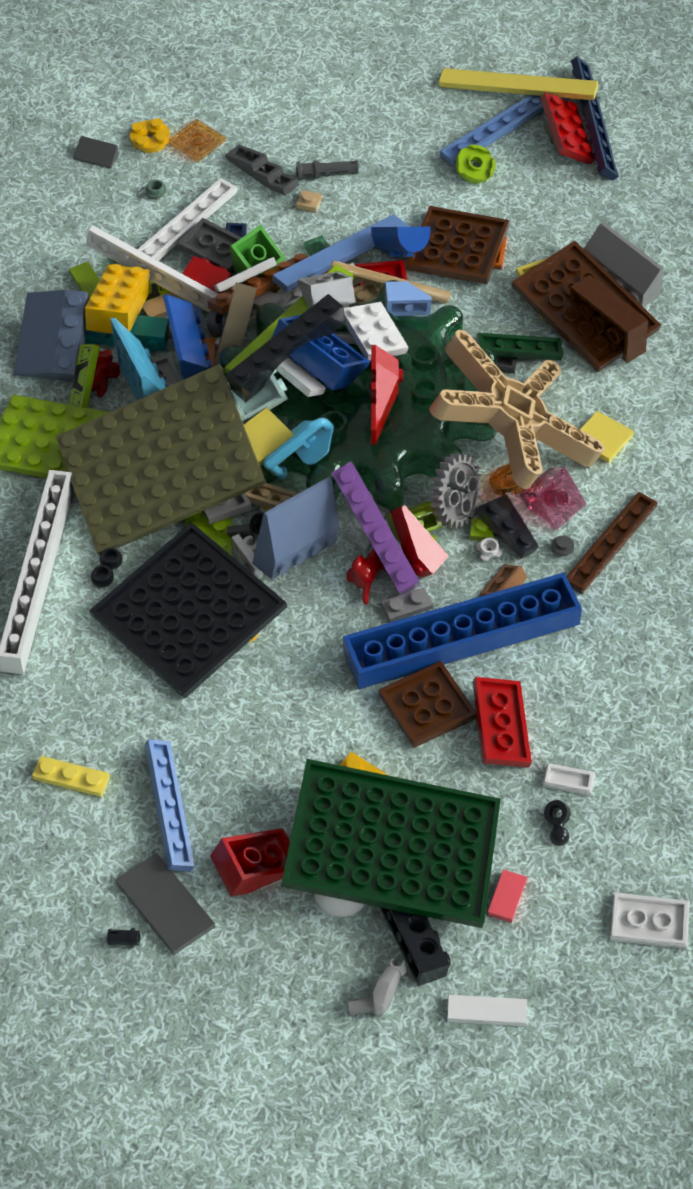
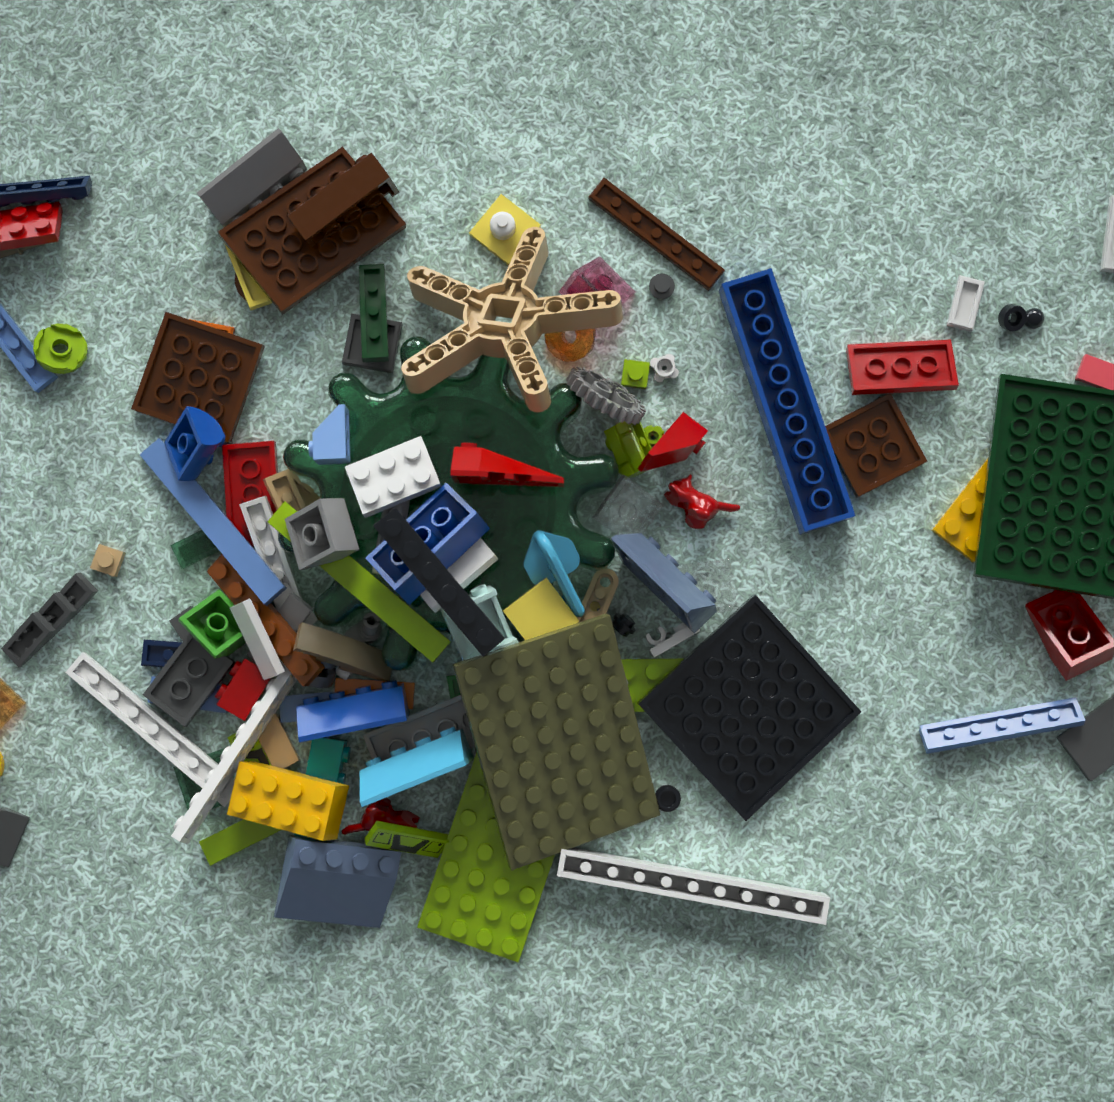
camera: 85 degrees left, 30 degrees up
(71, 776) = (959, 834): light yellow plate -> none
(102, 576) = (692, 807): black plate -> none
(155, 189) = (67, 756): sand green plate -> none
(243, 530) = (638, 650): dark grey tile -> none
(318, 169) = (55, 549): dark grey pin -> none
(376, 528) = (640, 502): medium lavender arch -> none
(379, 278) = (271, 462): tan axle -> none
(407, 604) = (738, 462): light grey plate -> none
(505, 578) = (711, 356): medium nougat slope -> none
(508, 525) = (635, 344): black wing -> none
(604, 429) = (502, 225): none -> white piece

